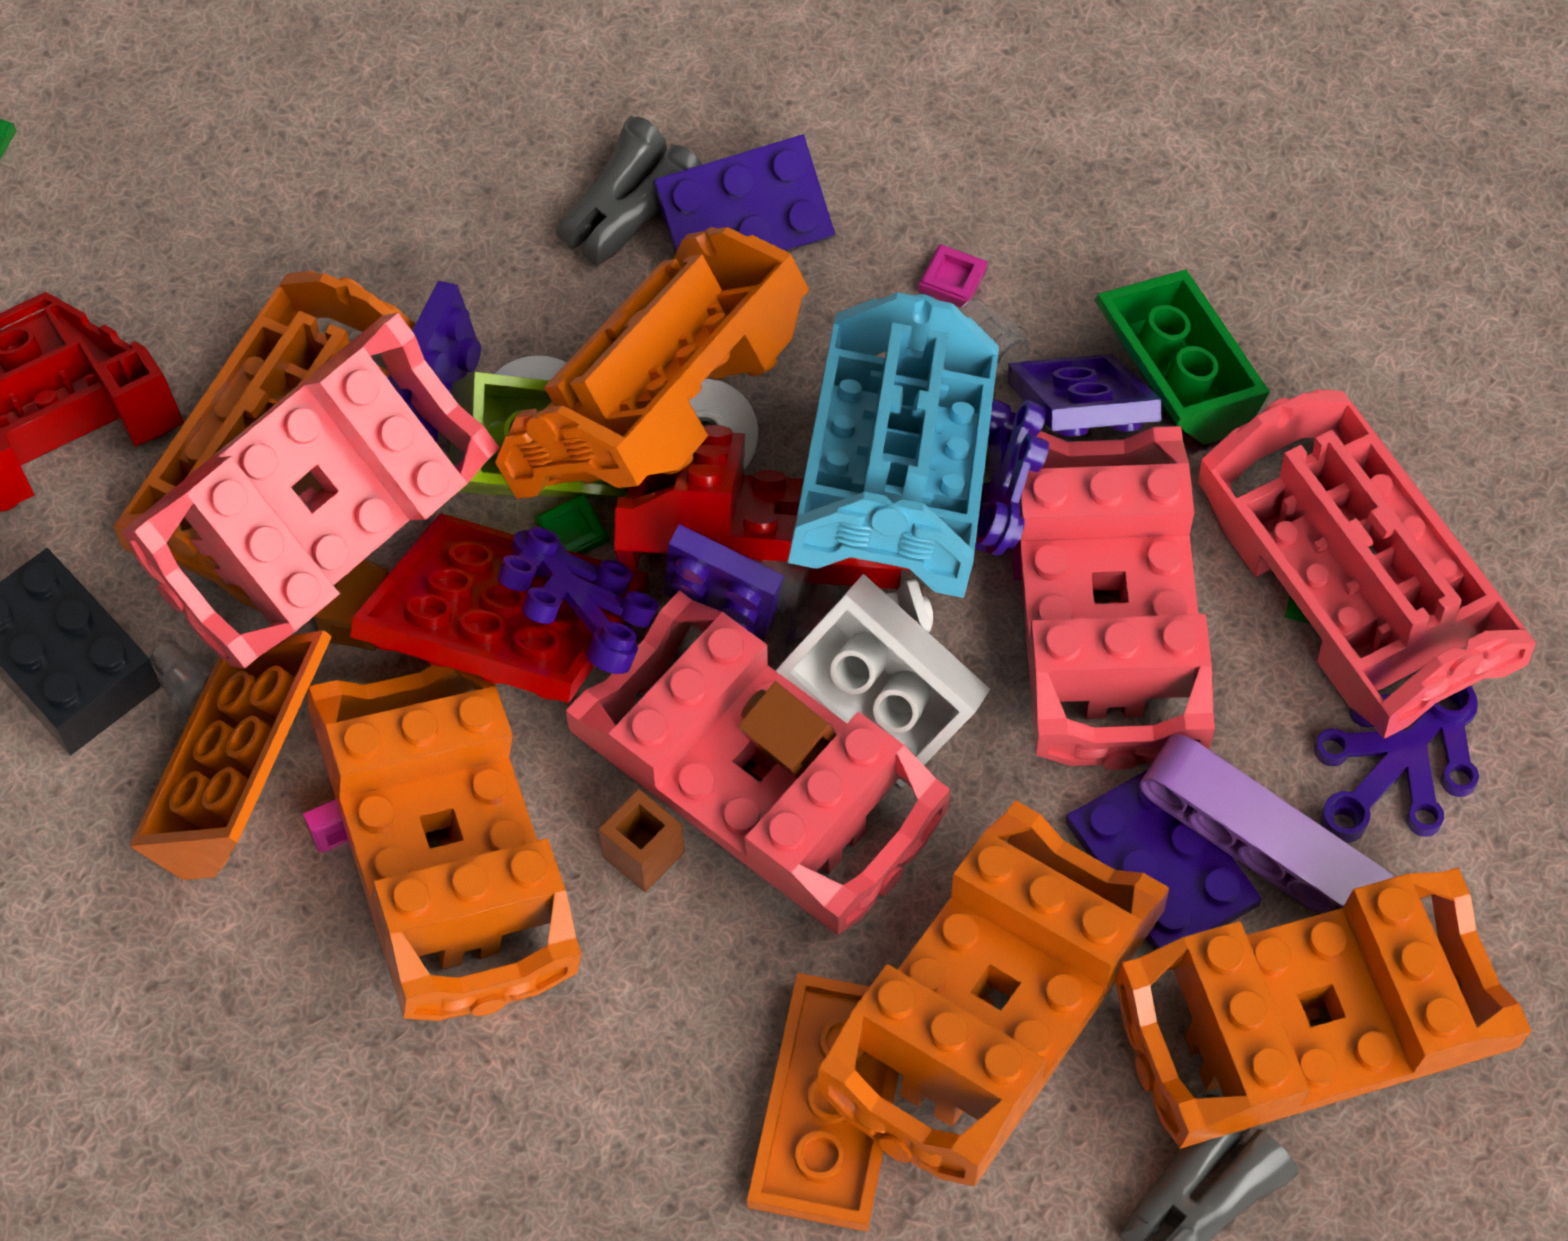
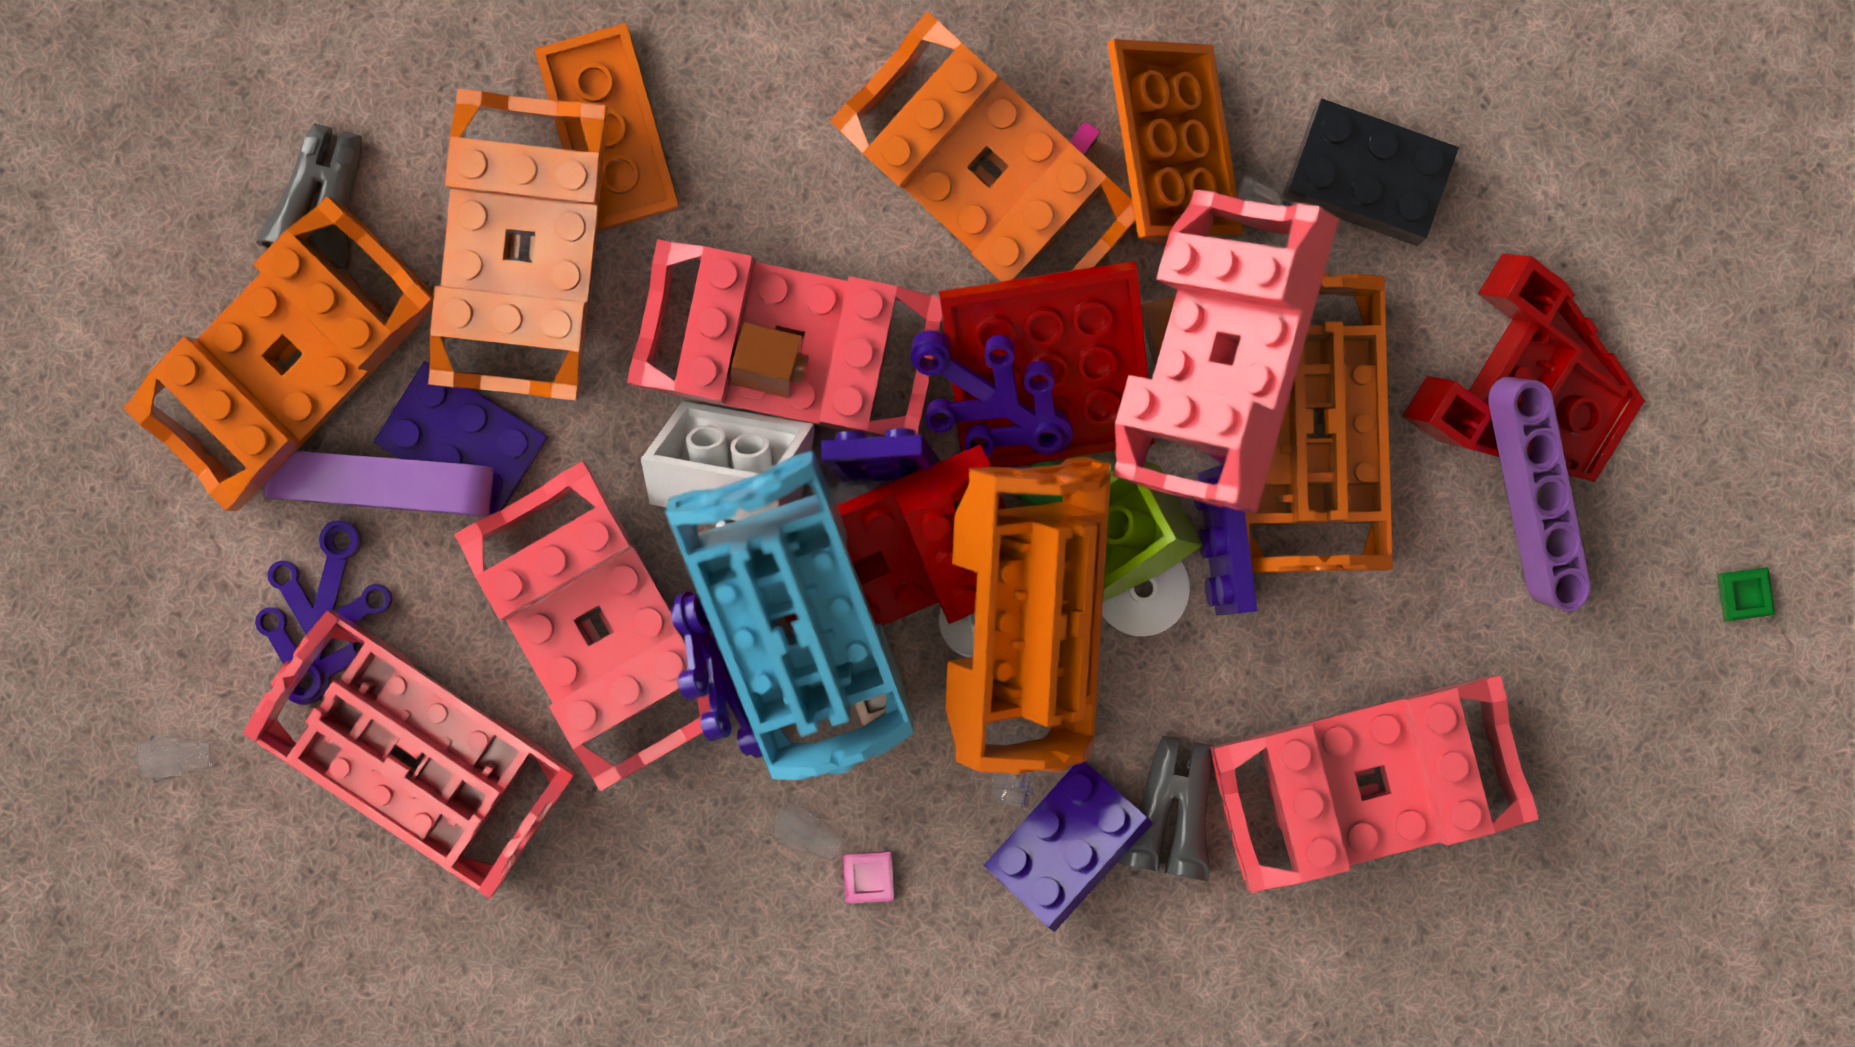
camera: 150 degrees right, 25 degrees up
(103, 283) = (1523, 478): none -> medium lavender beam
(426, 119) = (1426, 772): none -> coral piece
(641, 840) = (842, 243): dark orange brick -> none
(1085, 393) = (696, 793): dark purple plate -> none
(1185, 354) = (635, 872): green slope -> none

